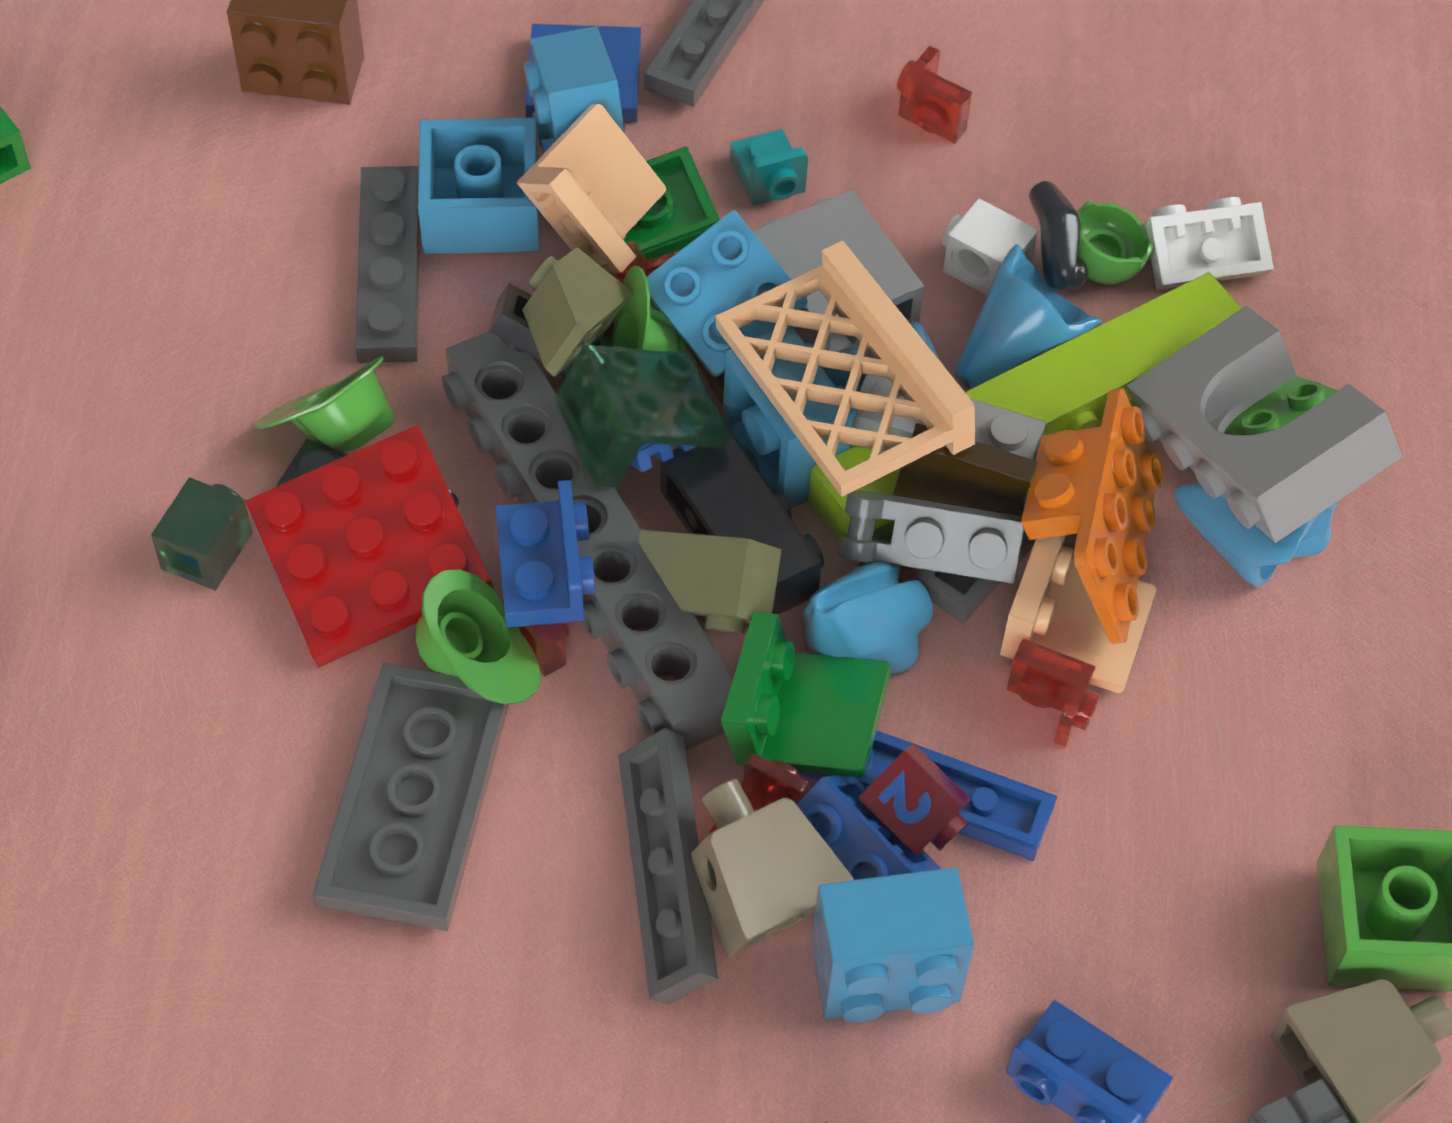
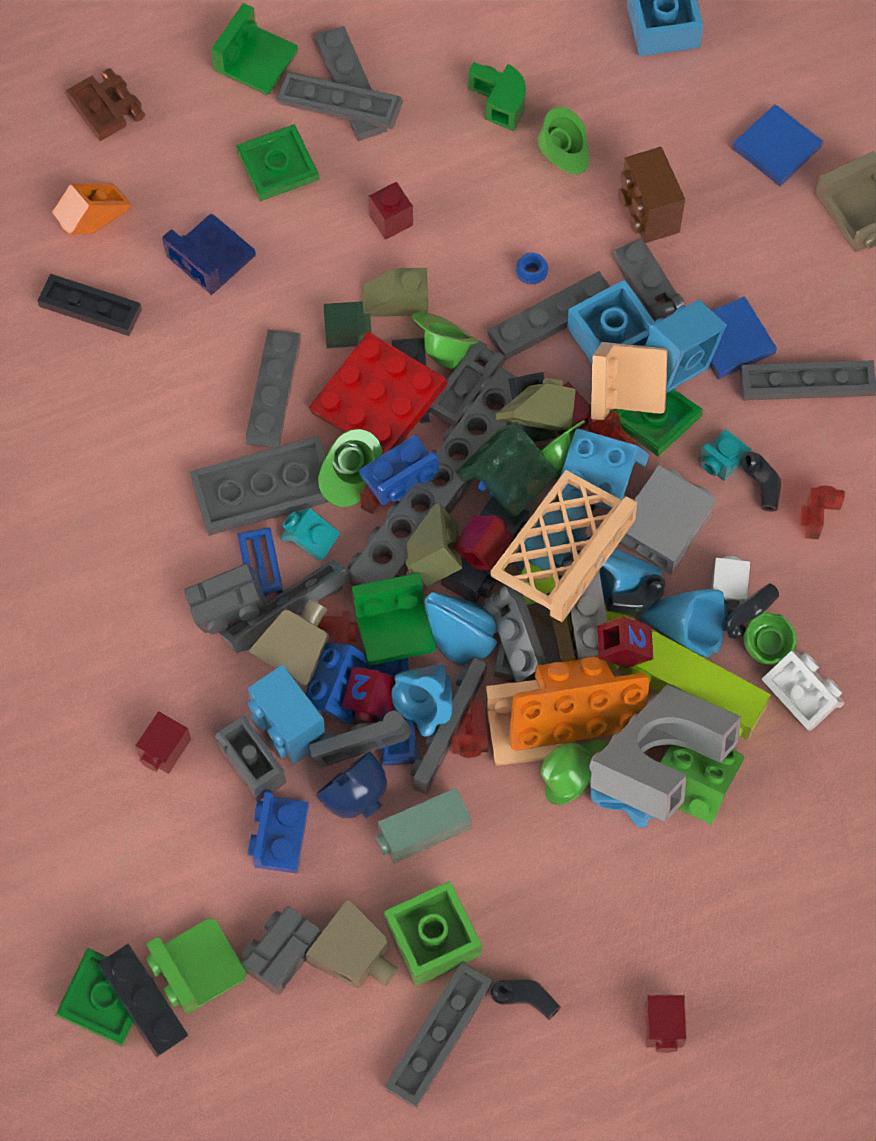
camera: 65 degrees right, 10 degrees up
(46, 372) = (391, 210): none -> dark red brick
(112, 104) = (564, 140): none -> bright green piece
(202, 429) = (397, 293): none -> olive slope
(244, 692) = (273, 388): none -> dark grey plate
(291, 247) = (535, 261): none -> blue plate
(393, 120) = (647, 279): none -> dark grey plate
(438, 415) = (466, 382): none -> dark grey plate
(546, 894) = (255, 535): none -> blue tile
(548, 763) = (310, 533): none -> teal bracket
(603, 945) = (226, 599): none -> dark grey brick
(759, 493) = (483, 541): none -> dark red brick
(841, 134) = (767, 478): none -> black arm
(937, 1046) = (250, 758): none -> dark grey brick
(960, 348) = (641, 600): none -> black arm
(977, 714) = (424, 697): none -> dark azure hat
(990, 847) = (360, 740): none -> dark grey plate
(1039, 732) = (440, 741): none -> dark grey plate
(1045, 388) = (625, 642): none -> dark red brick
(1071, 906) = (355, 789): none -> dark blue cylinder
(1188, 839) = (423, 826): none -> sand green brick
(1200, 579) = (568, 770): none -> bright green piece

